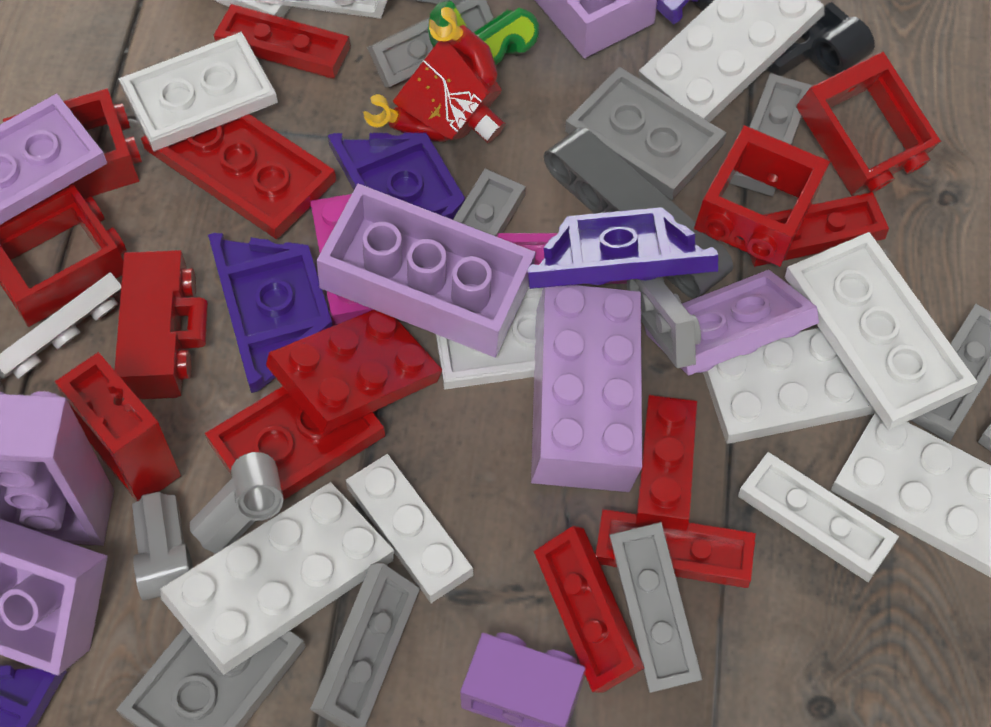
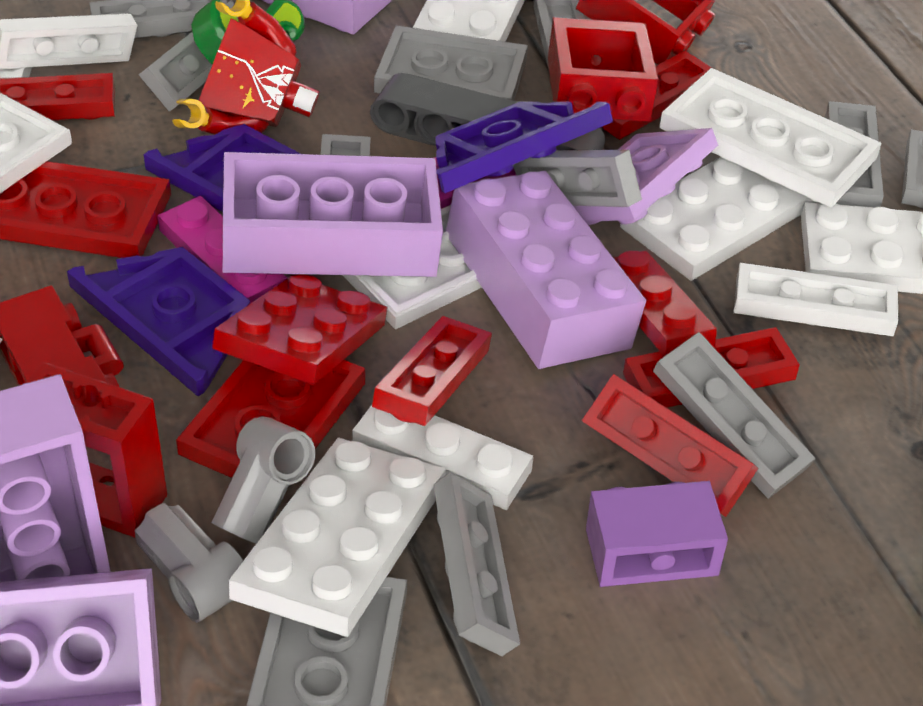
camera: 30 degrees left, 15 degrees down
(432, 454) = (431, 371): none -> red plate

